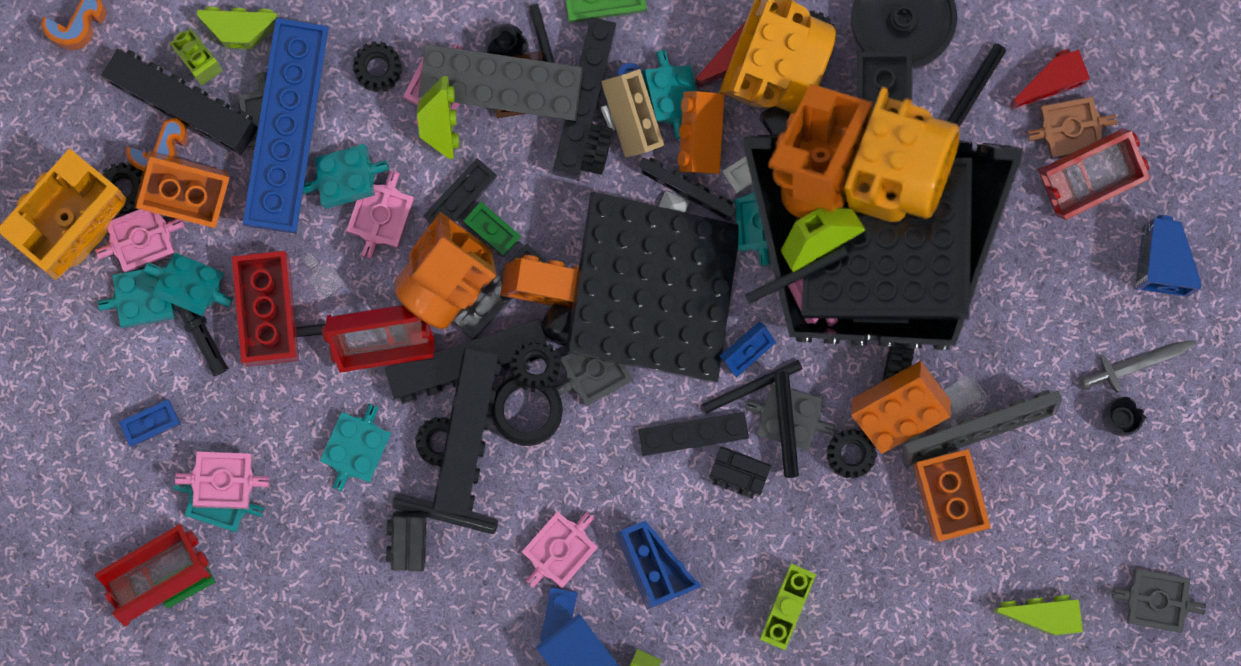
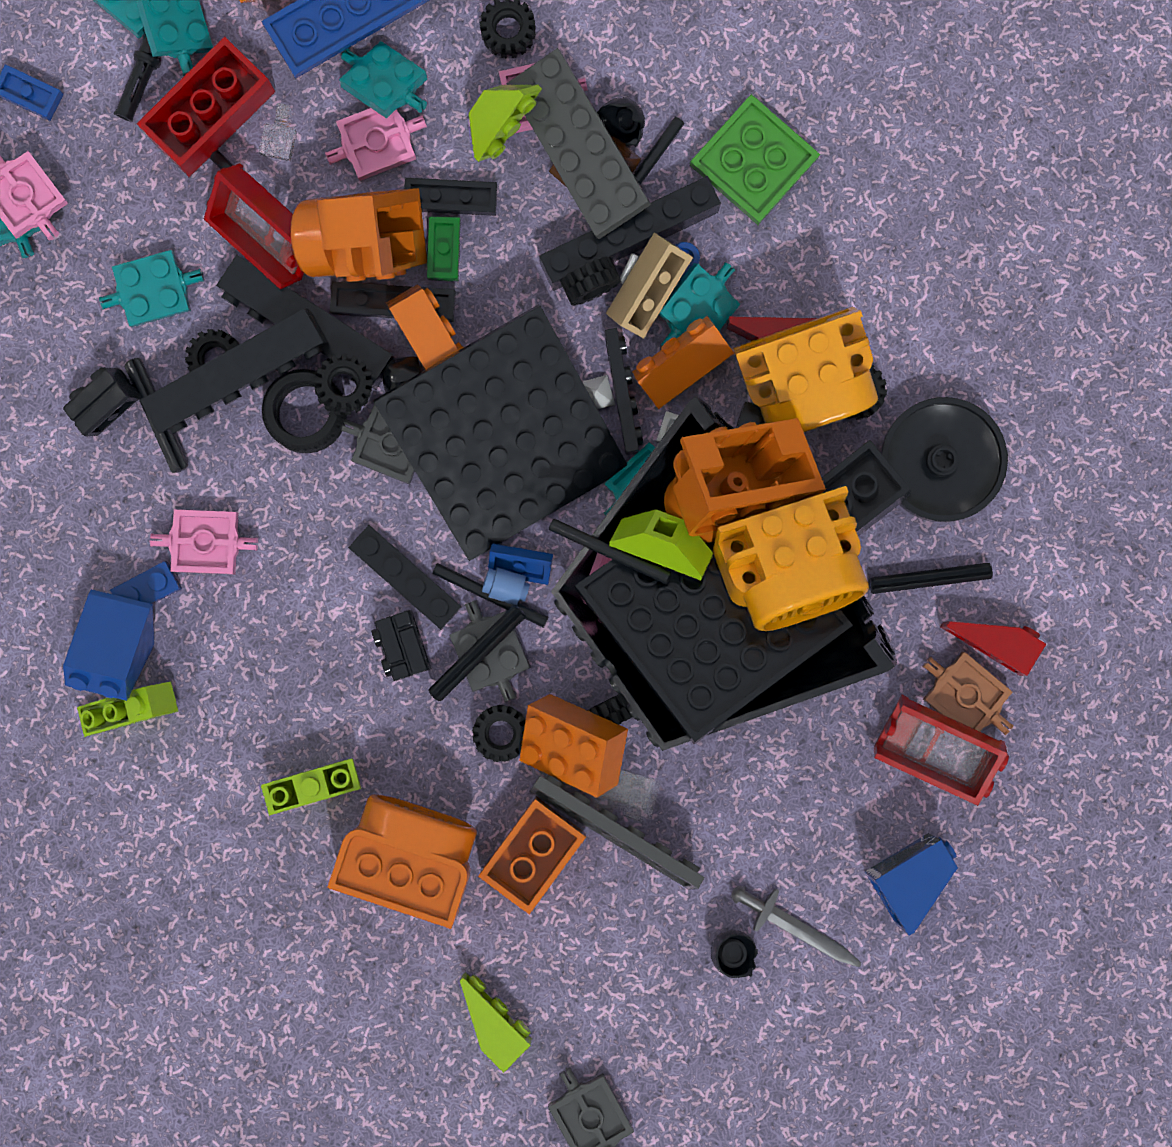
camera: 55 degrees right, 5 degrees up
(654, 566) = (253, 638): blue wedge -> none
(755, 370) = (505, 586): none -> medium blue brick
(890, 578) = (406, 860): none -> orange brick

